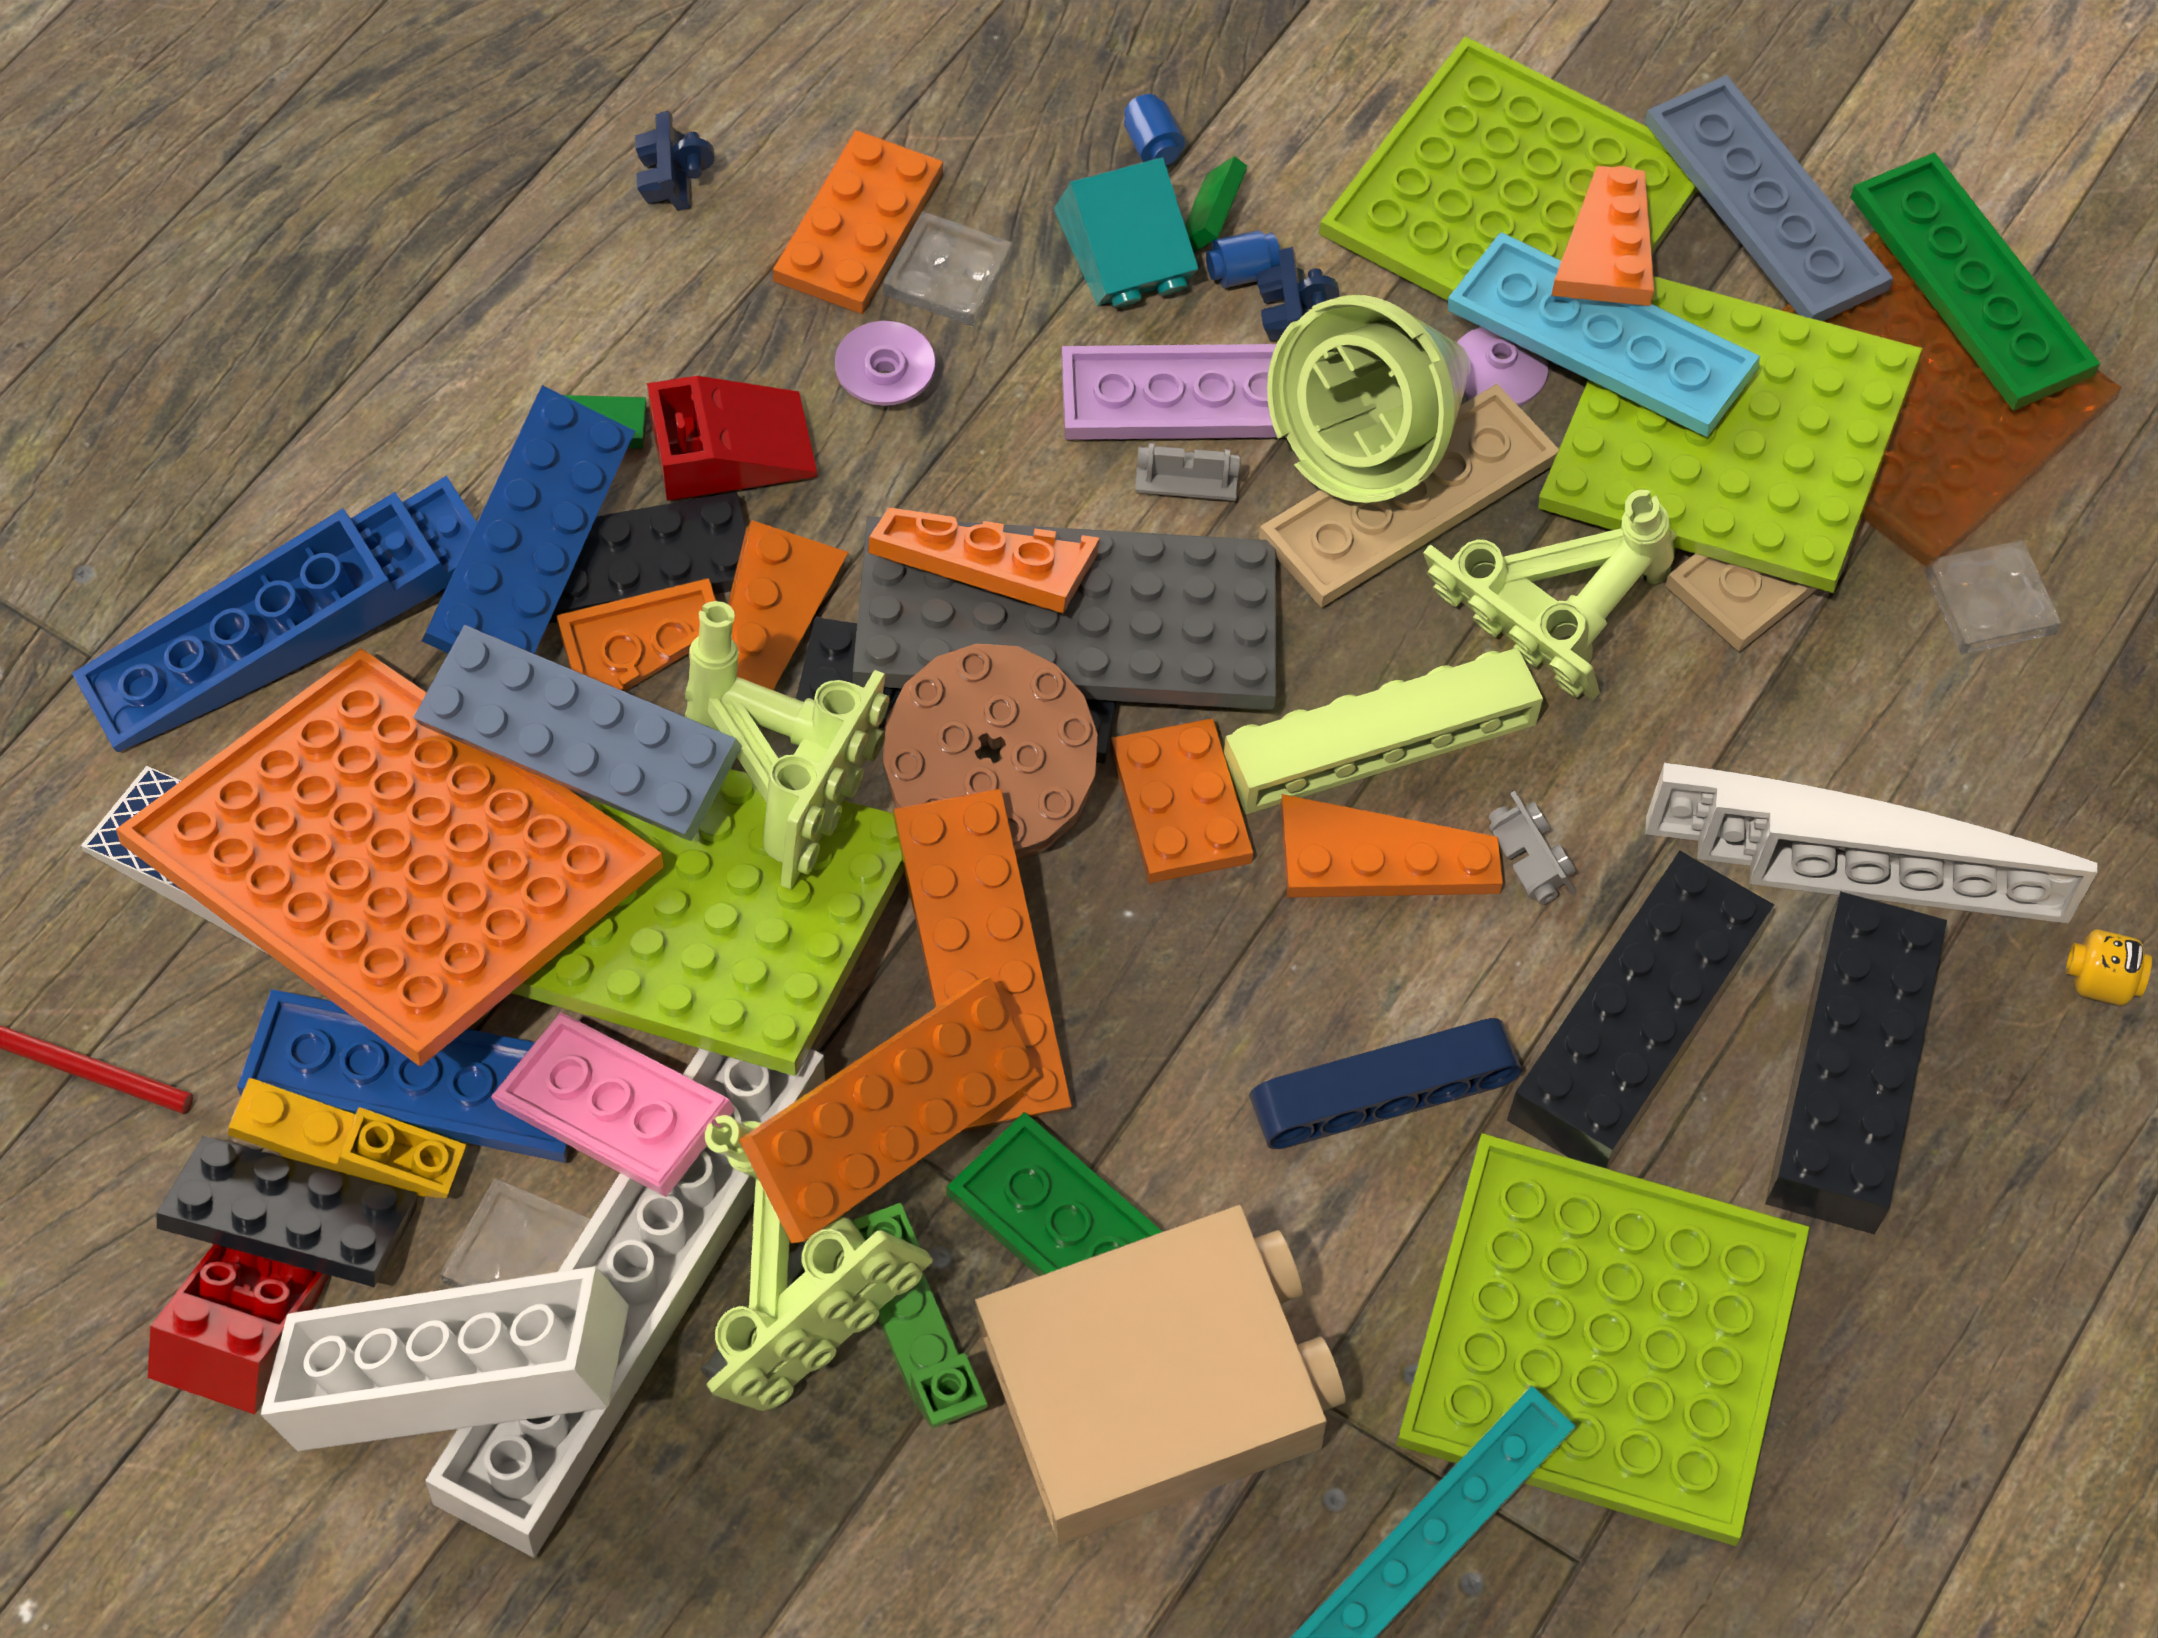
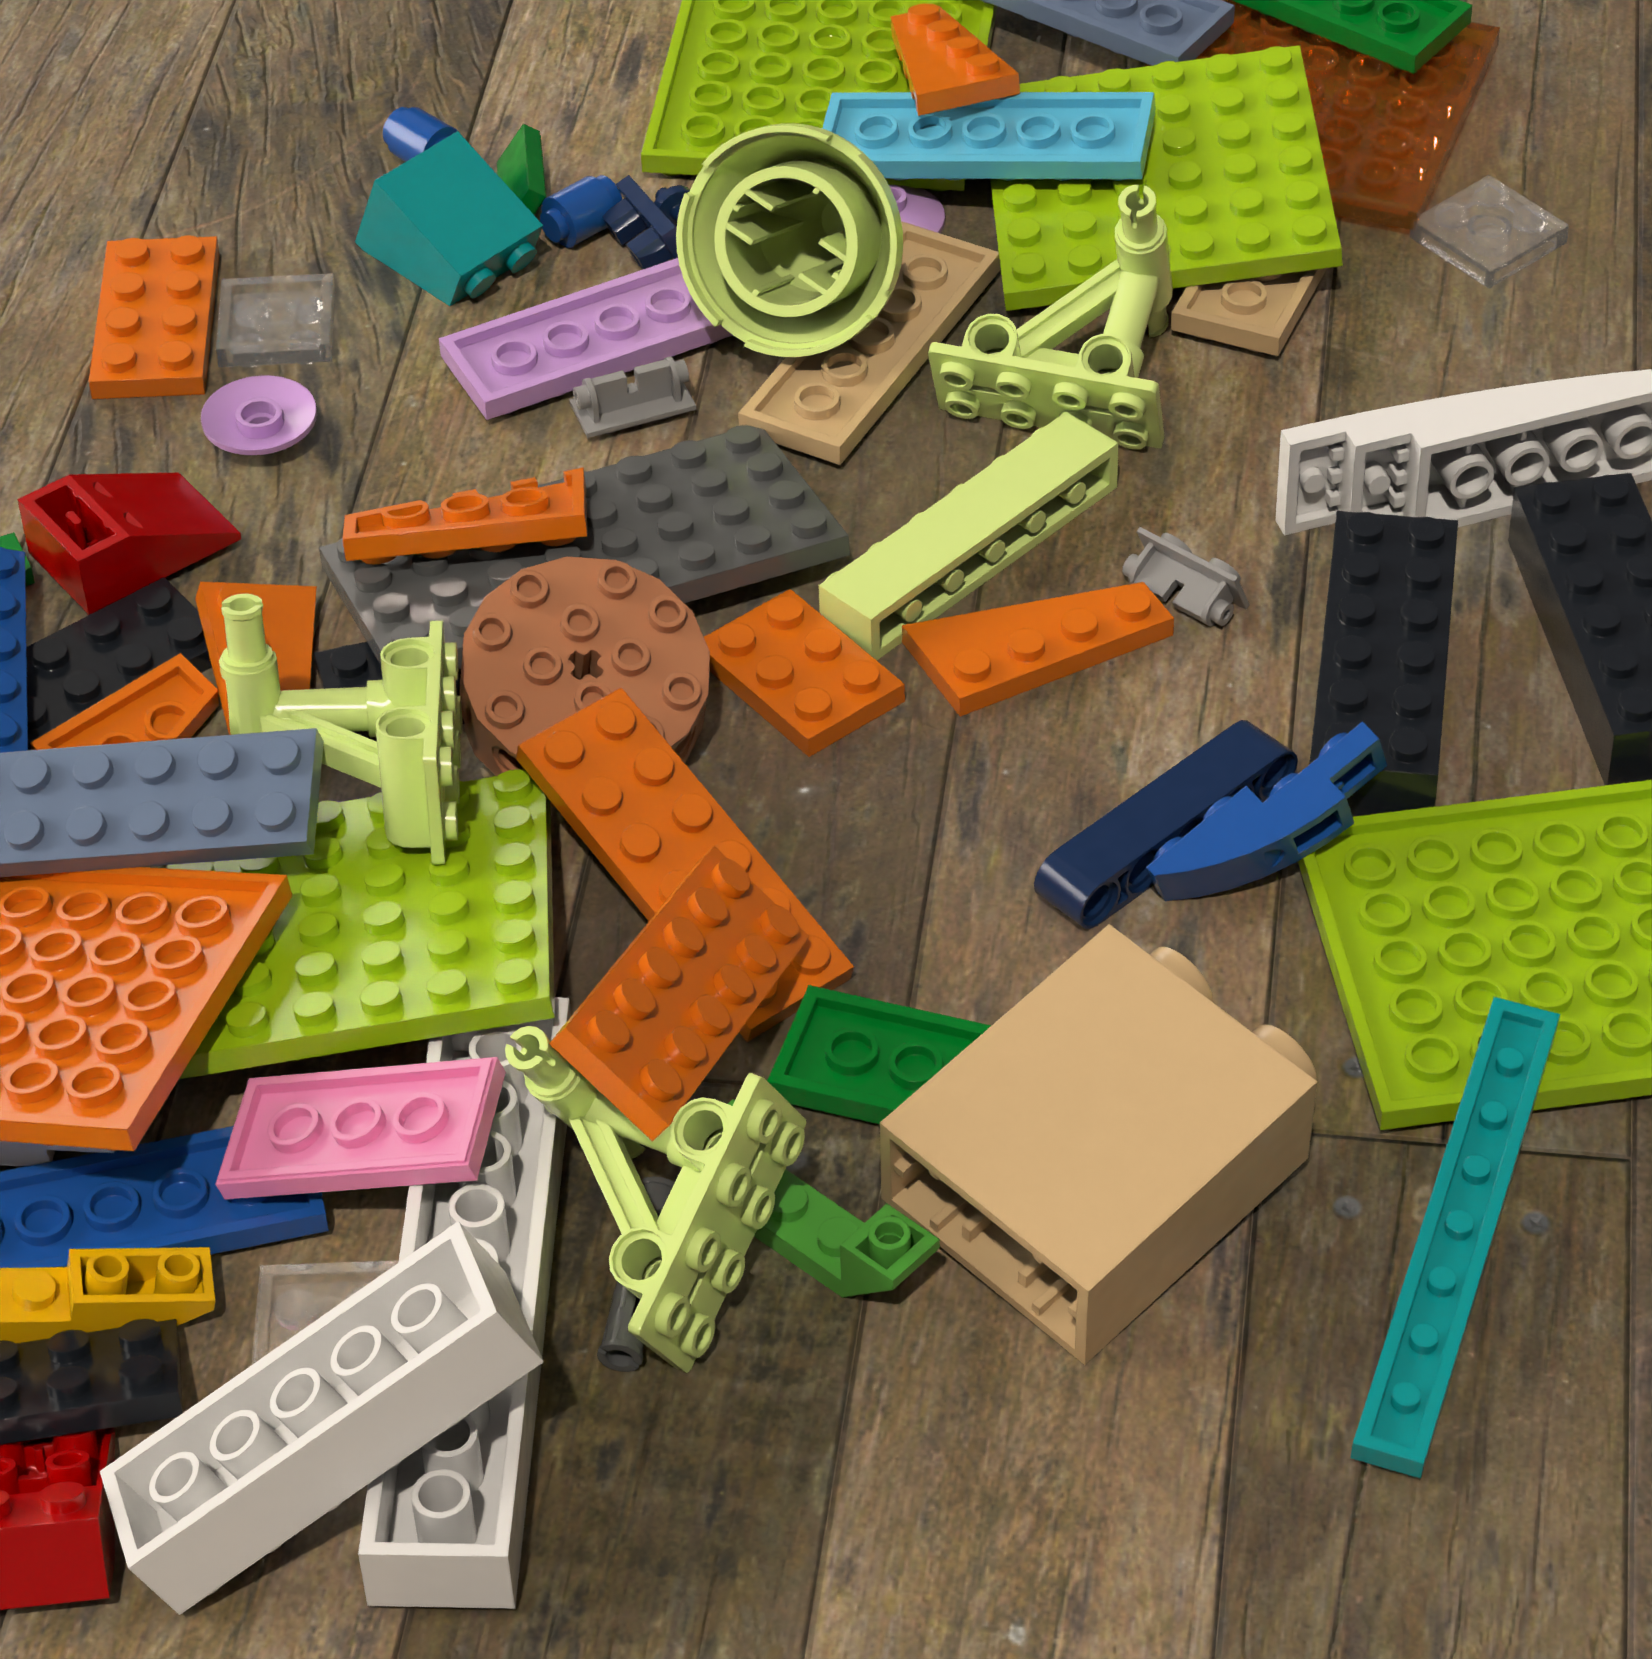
camera: 20 degrees left, 15 degrees down
(1435, 1139) = (1253, 839): none -> blue slope

